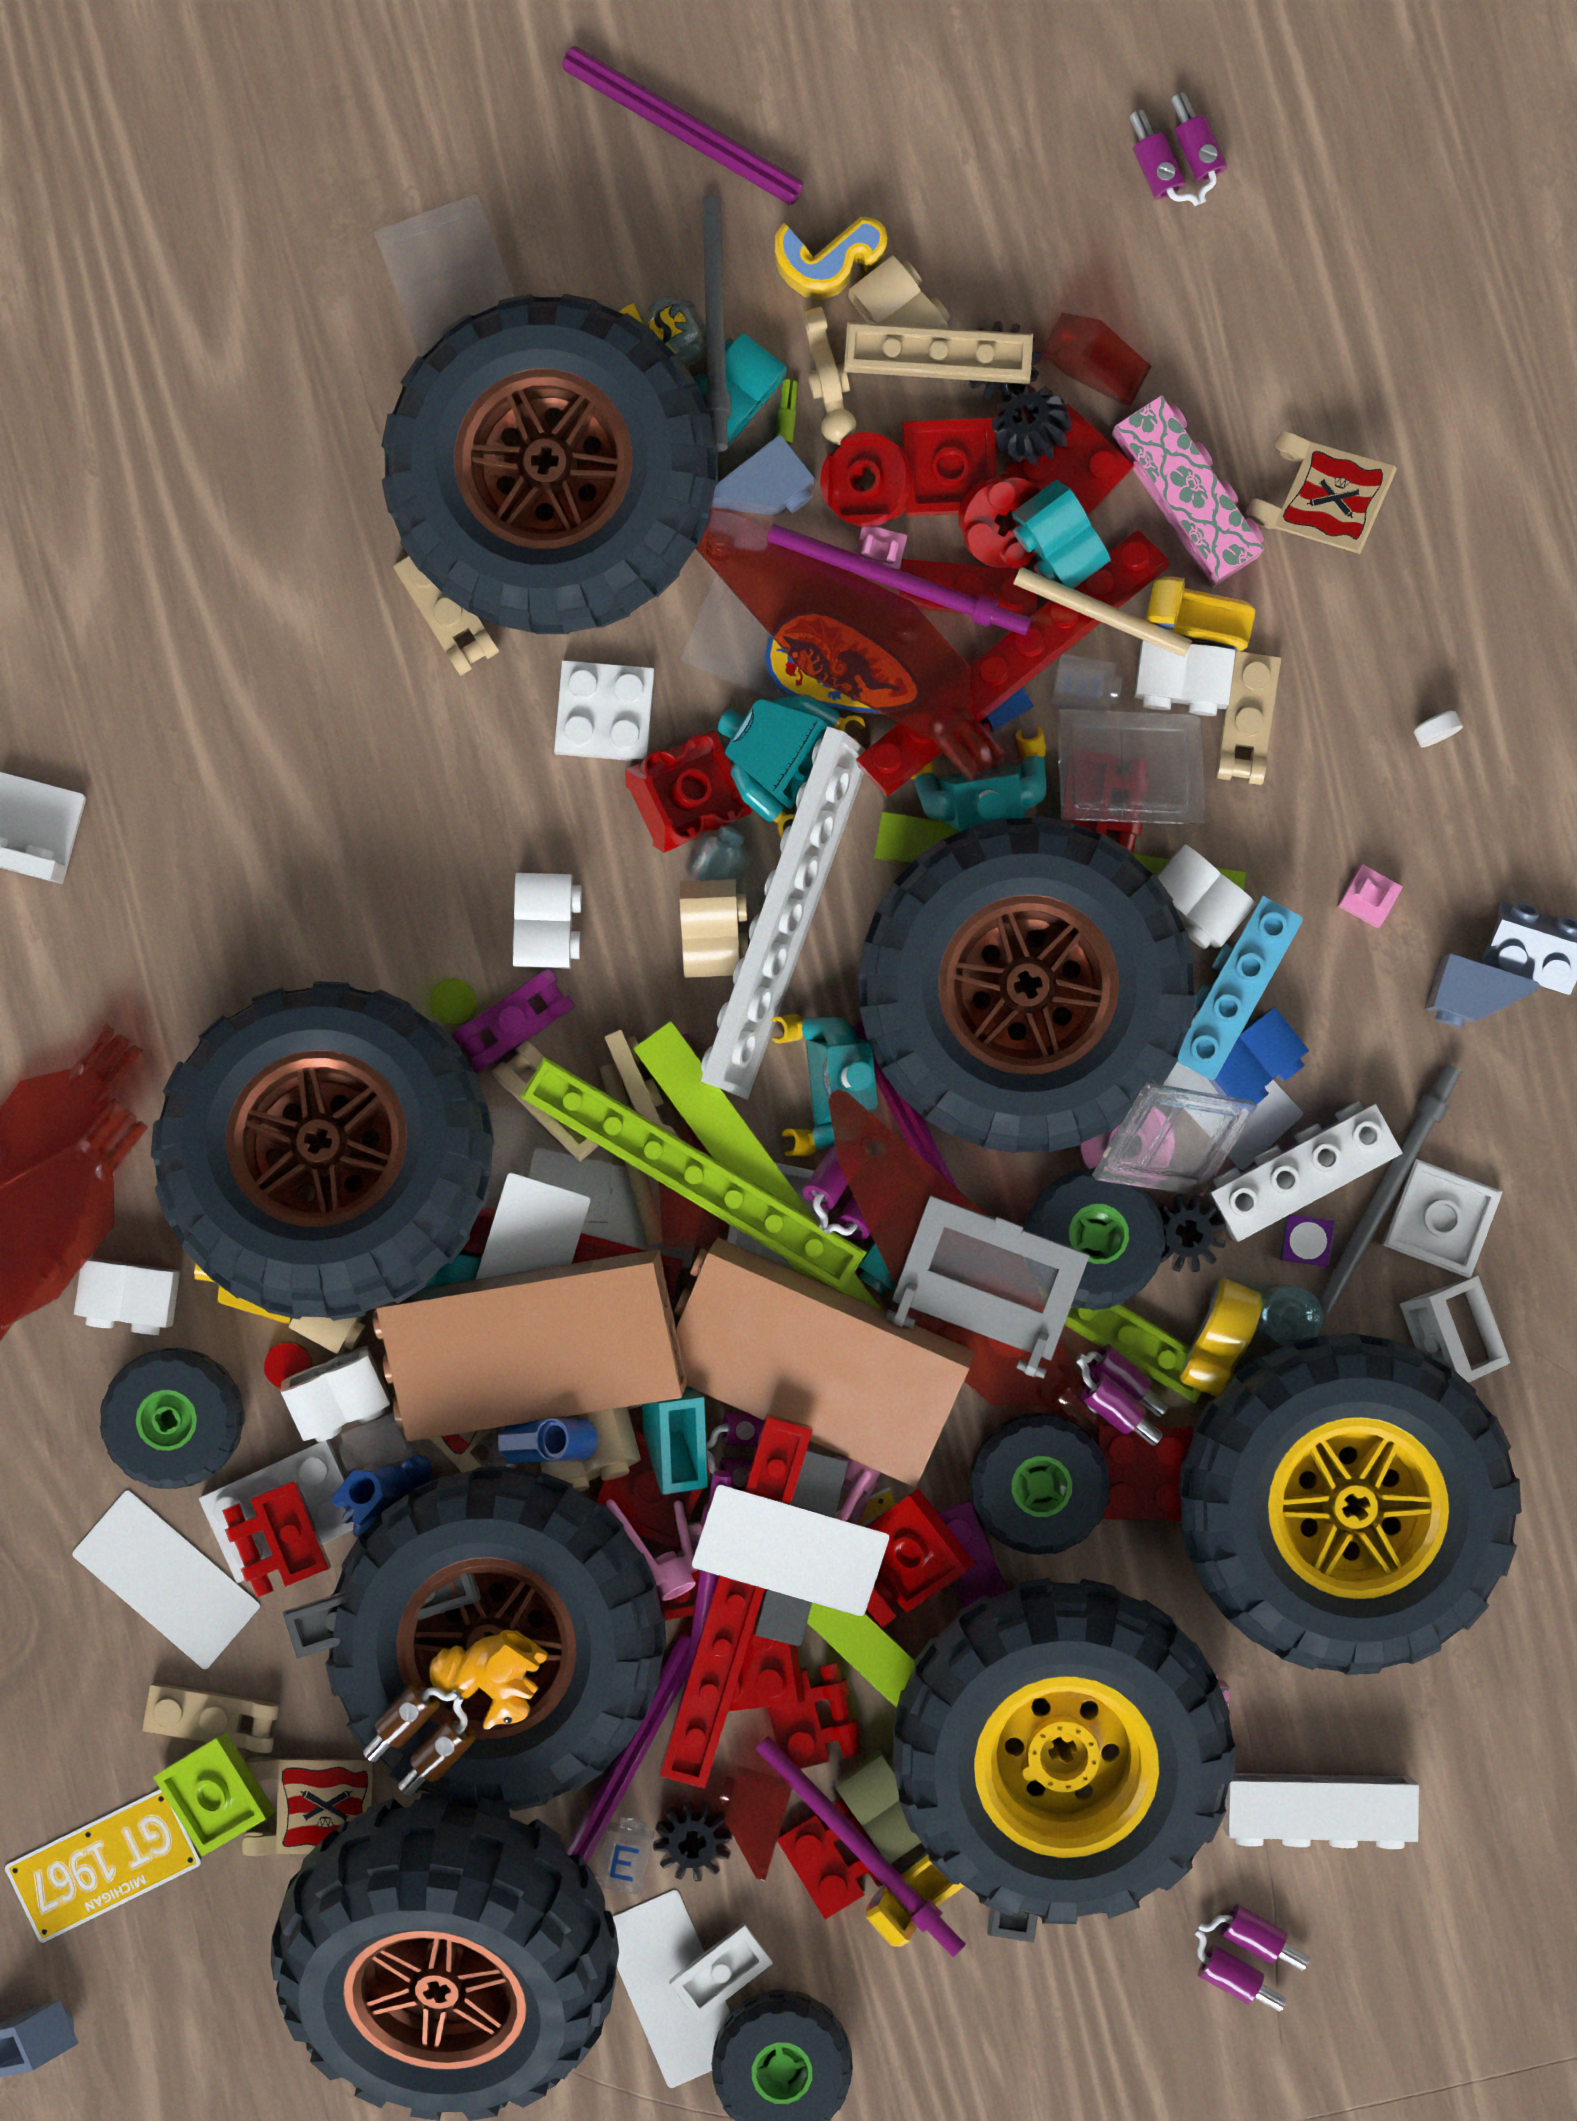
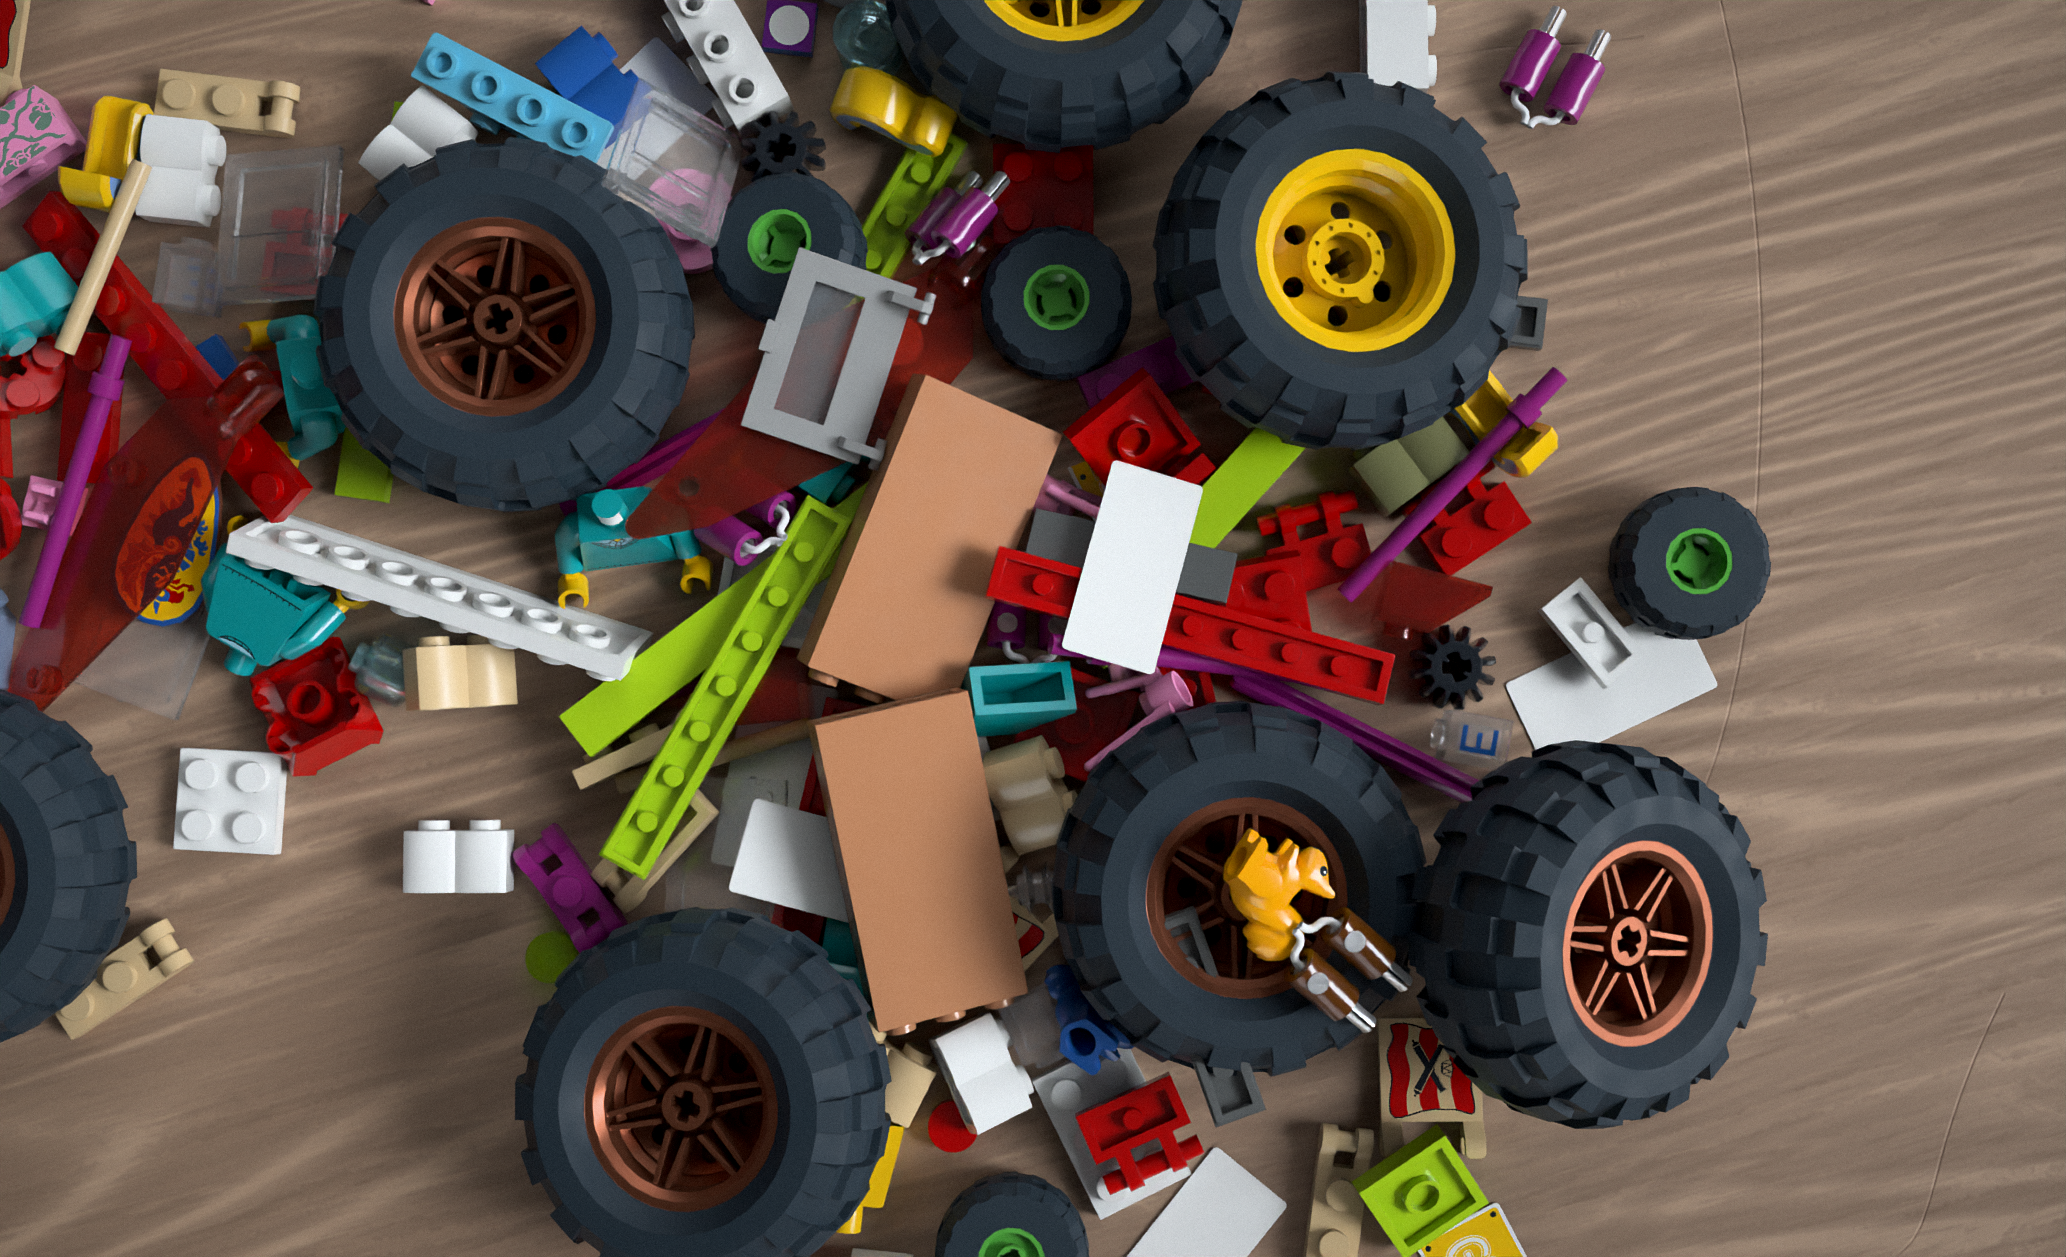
camera: 85 degrees left, 0 degrees up
(548, 1441) = (1021, 836): blue piece -> none

